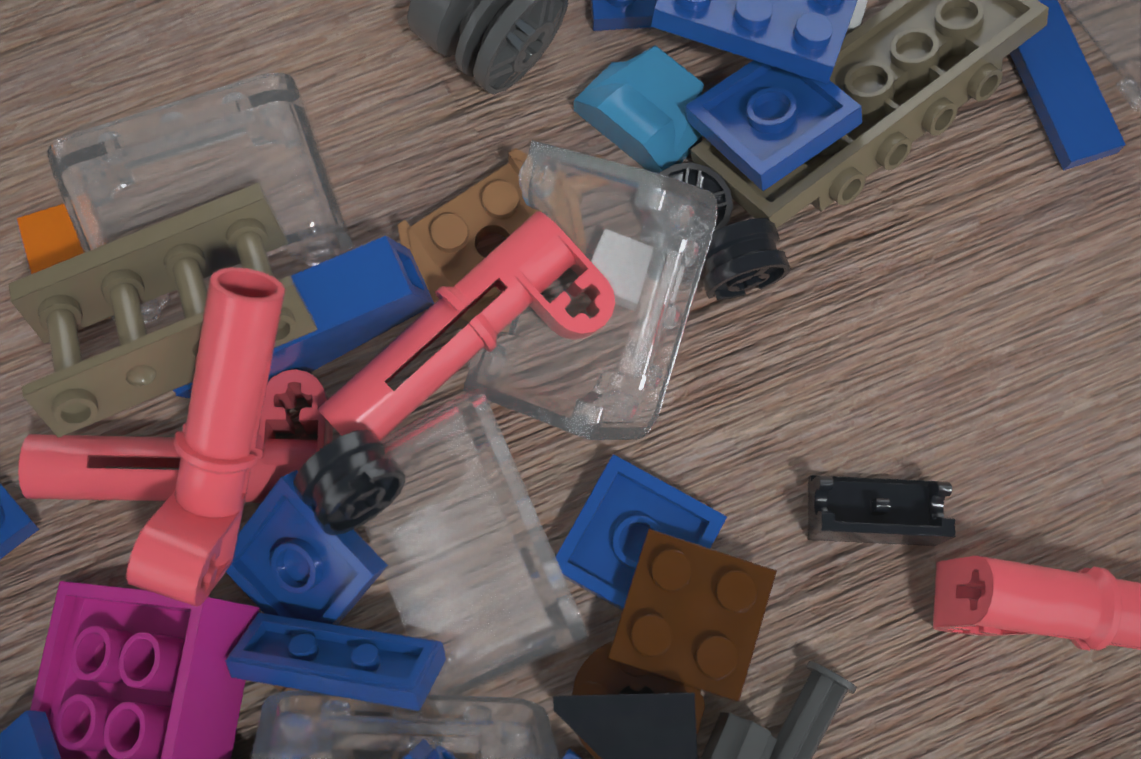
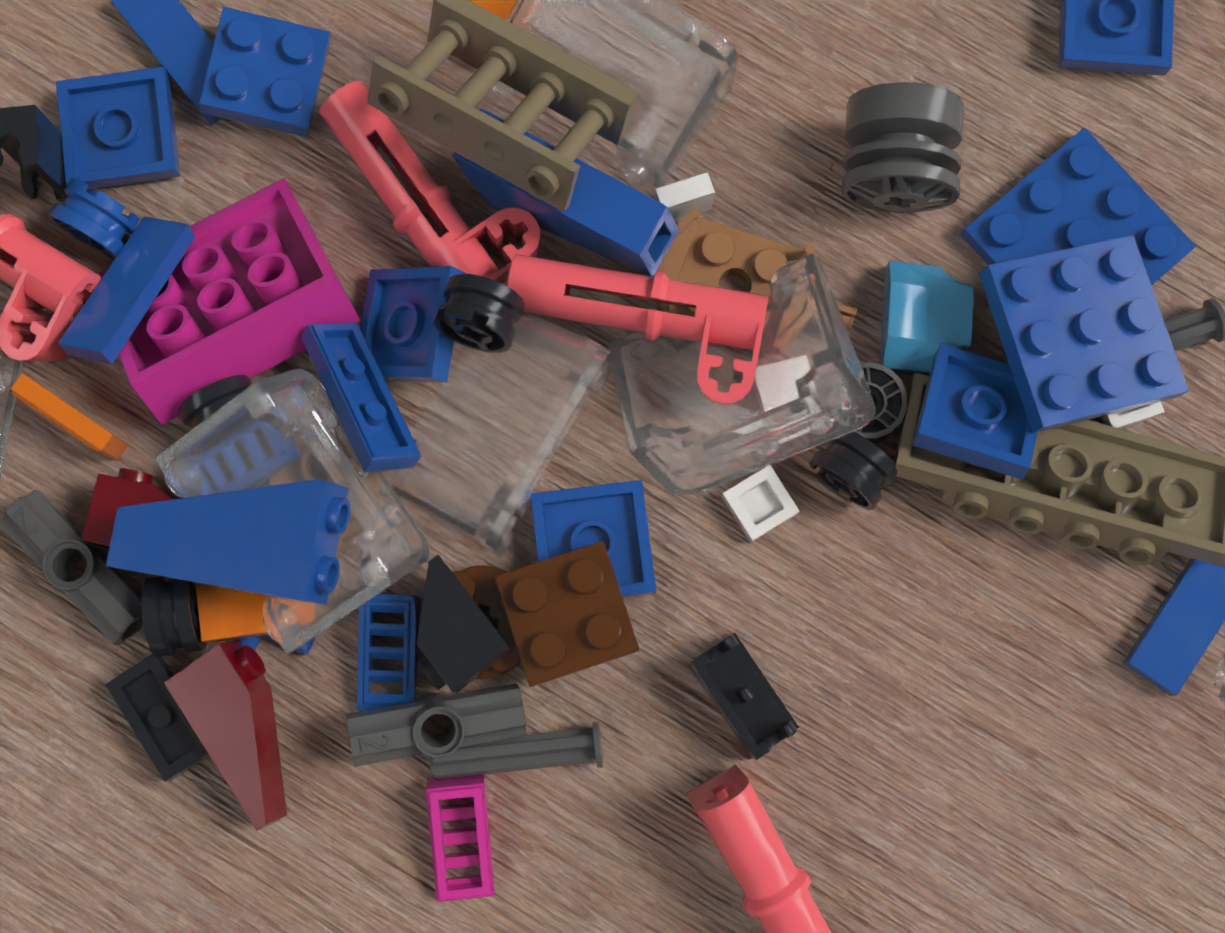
camera: 55 degrees right, 5 degrees up
(198, 527) = (379, 238): coral piece -> none
(381, 217) = (687, 194): none -> white tile
(709, 367) = (760, 503): none -> white tile

